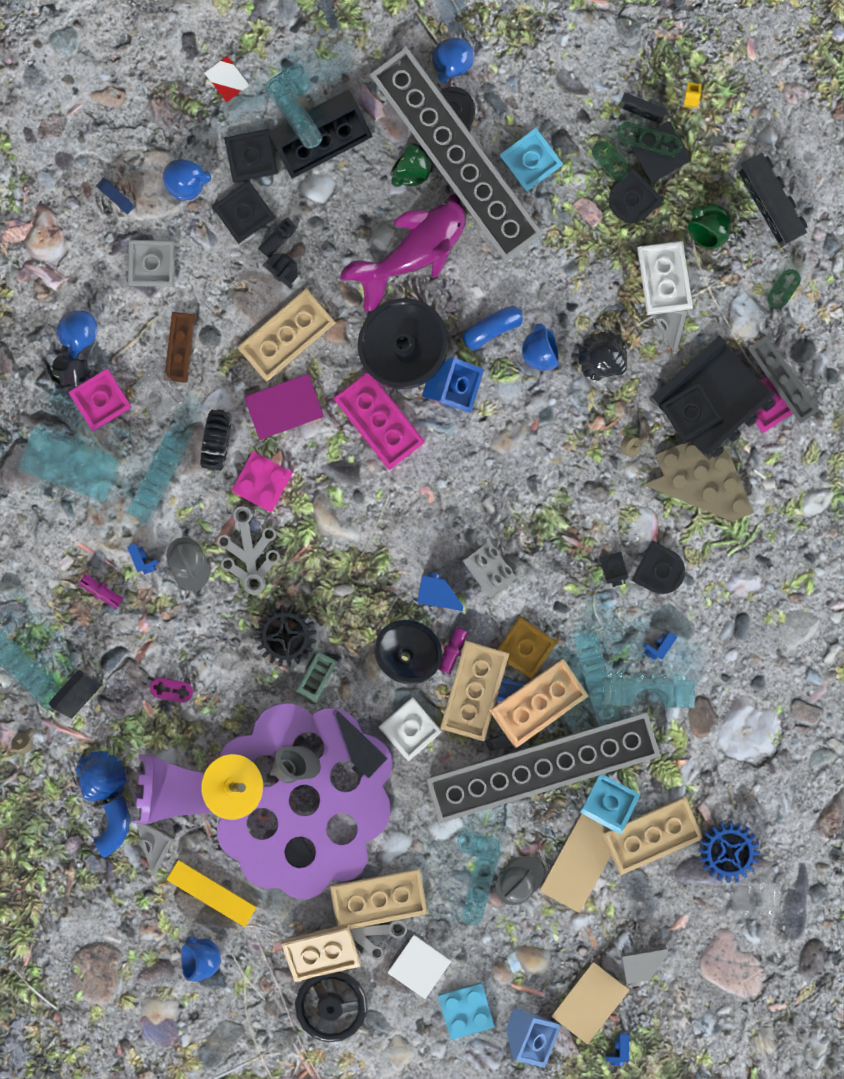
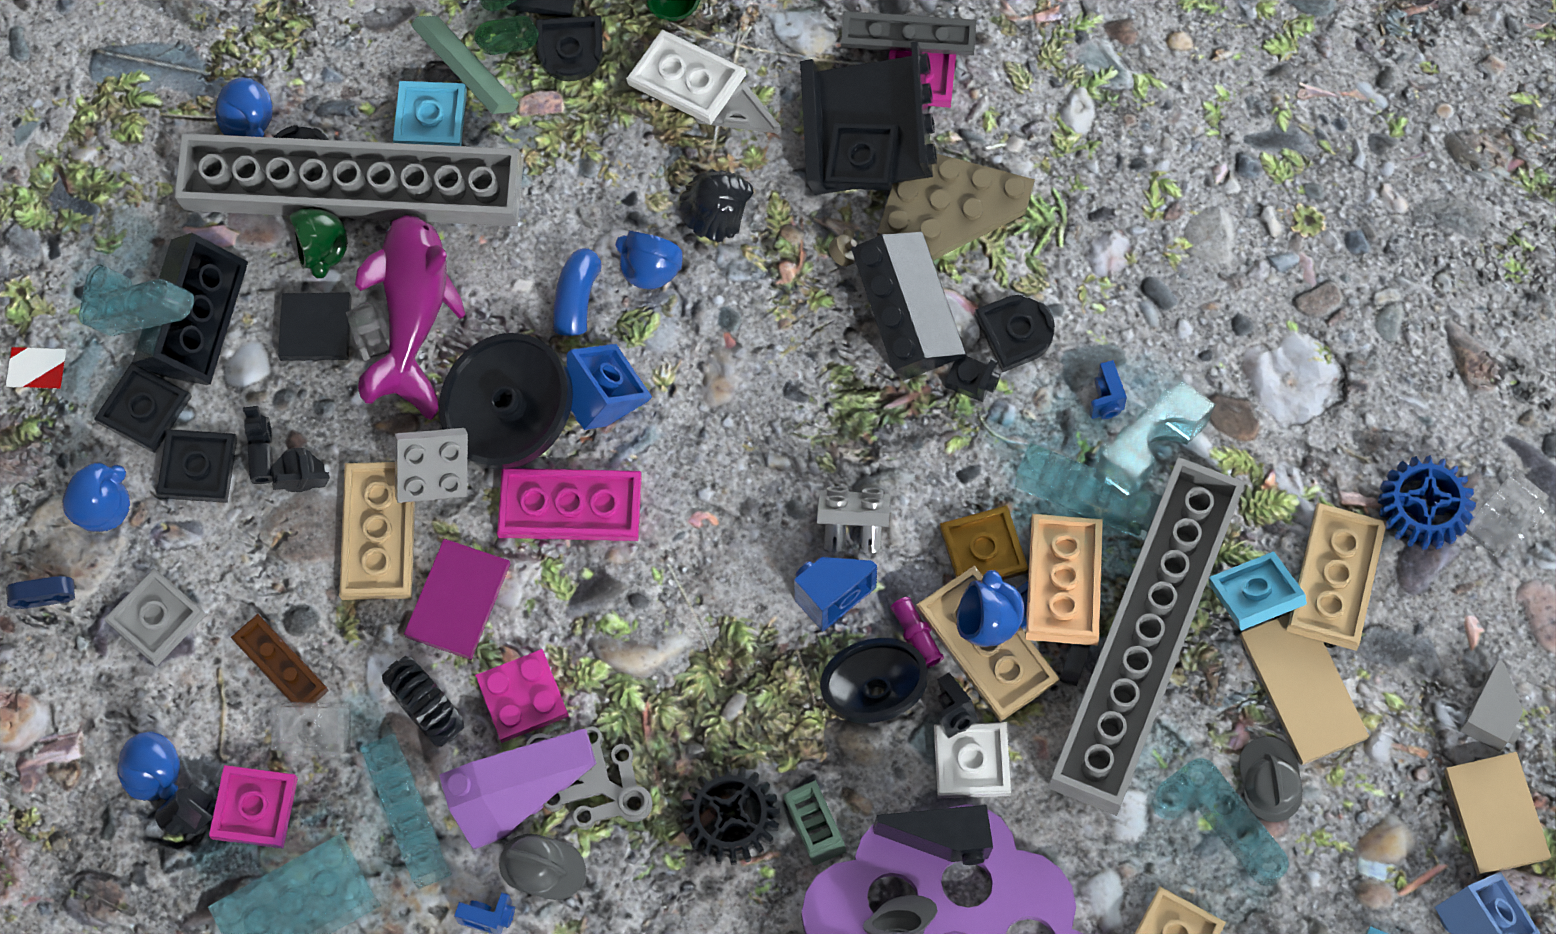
camera: 50 degrees left, 20 degrees down
(207, 518) = (506, 788): none -> medium lavender wedge
(337, 336) = (431, 465): none -> light grey plate
(365, 205) = (314, 326): none -> black tile
(427, 706) = (957, 706): none -> black bracket
(486, 683) = (989, 611): none -> blue piece
(574, 153) = (464, 64): none -> sand green tile
(625, 505) = (908, 303): none -> slope

